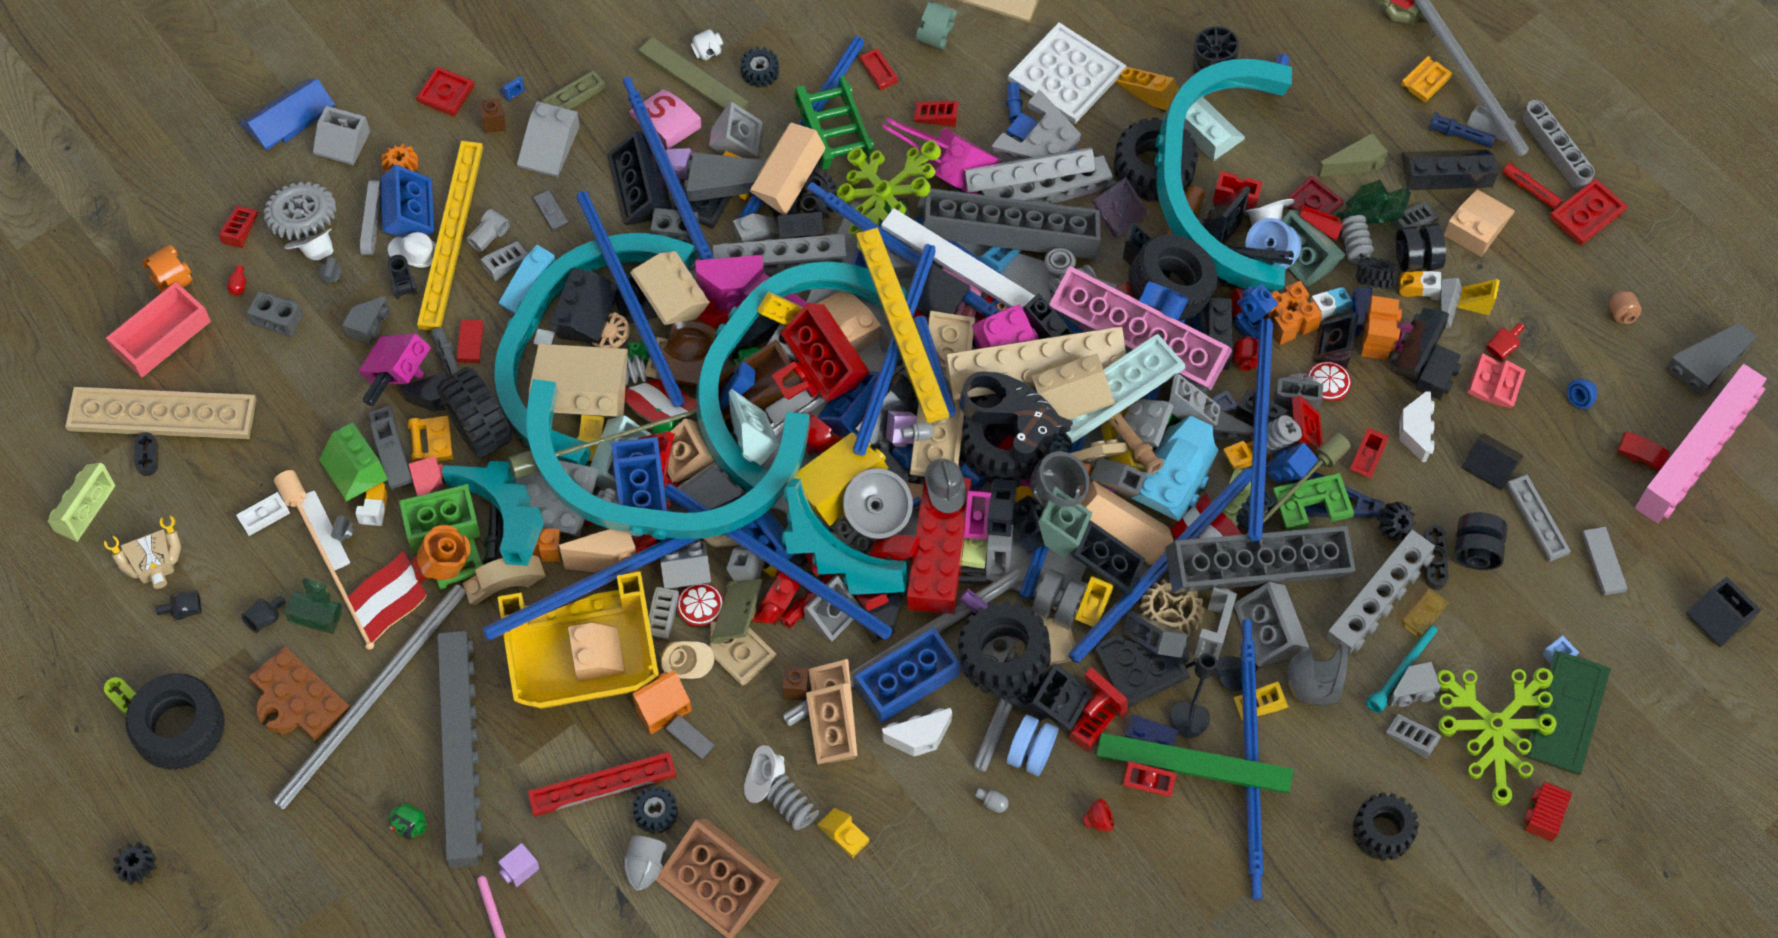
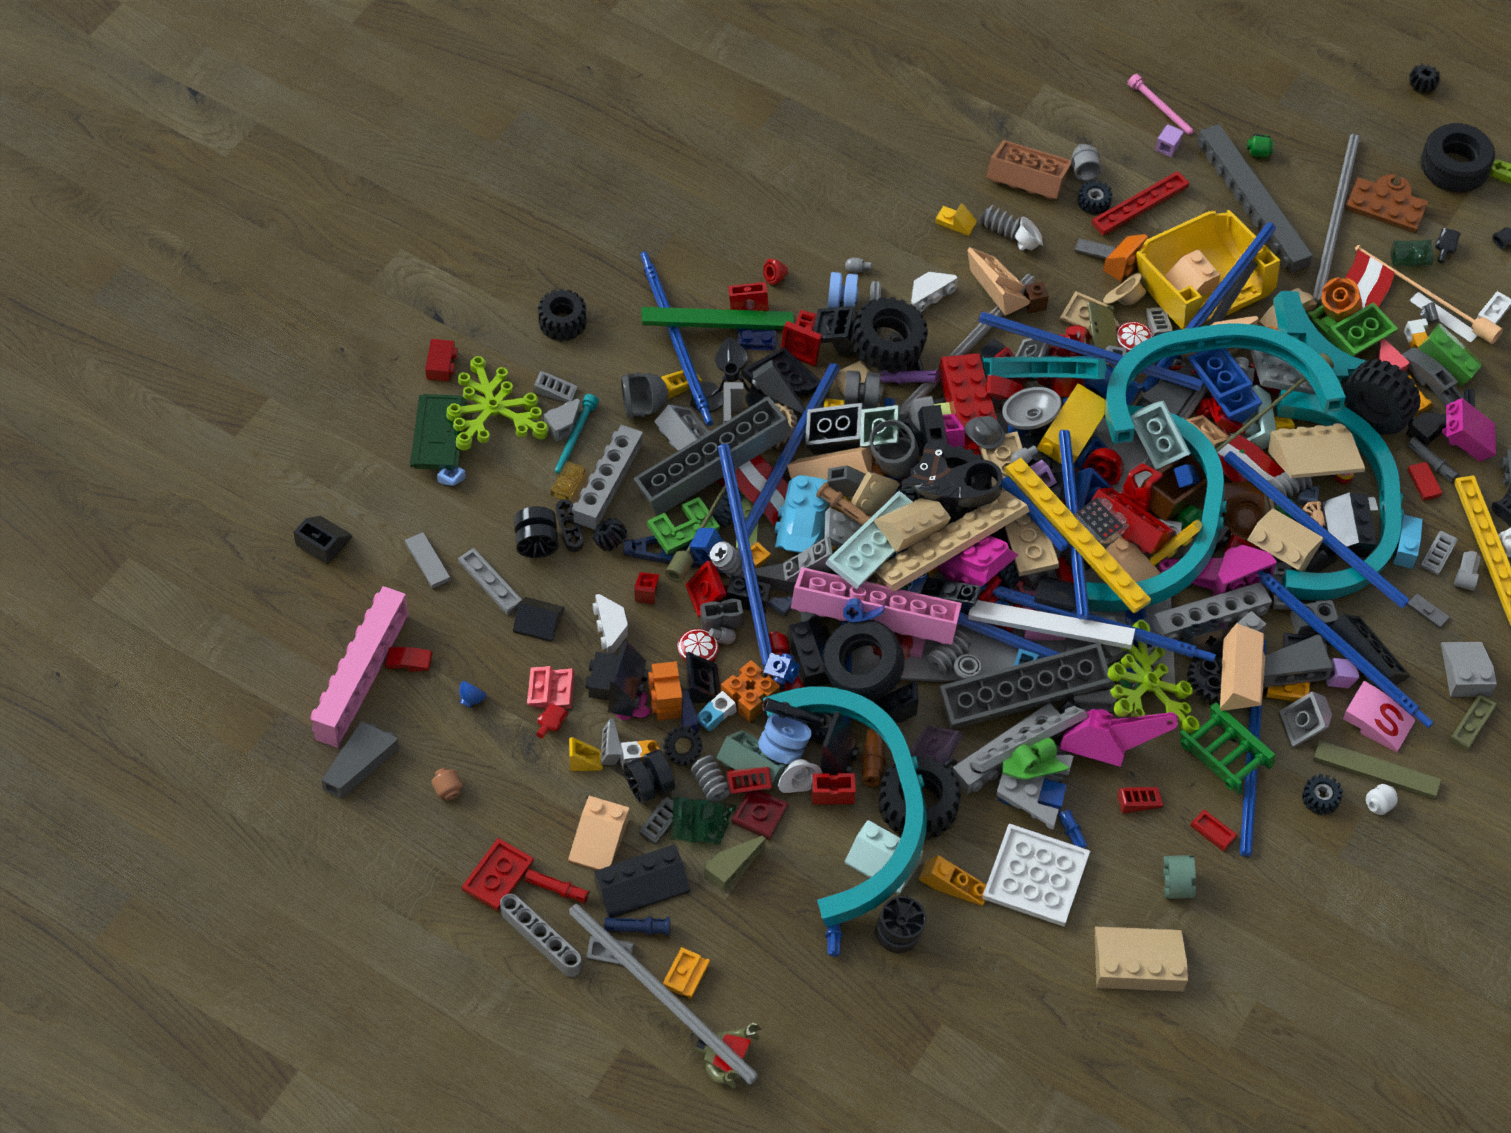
camera: 160 degrees right, 5 degrees down
(867, 335) = (1102, 520): none -> slope
(907, 675) = (956, 318): blue brick -> none
(1034, 140) = (1034, 761): none -> bright green panel

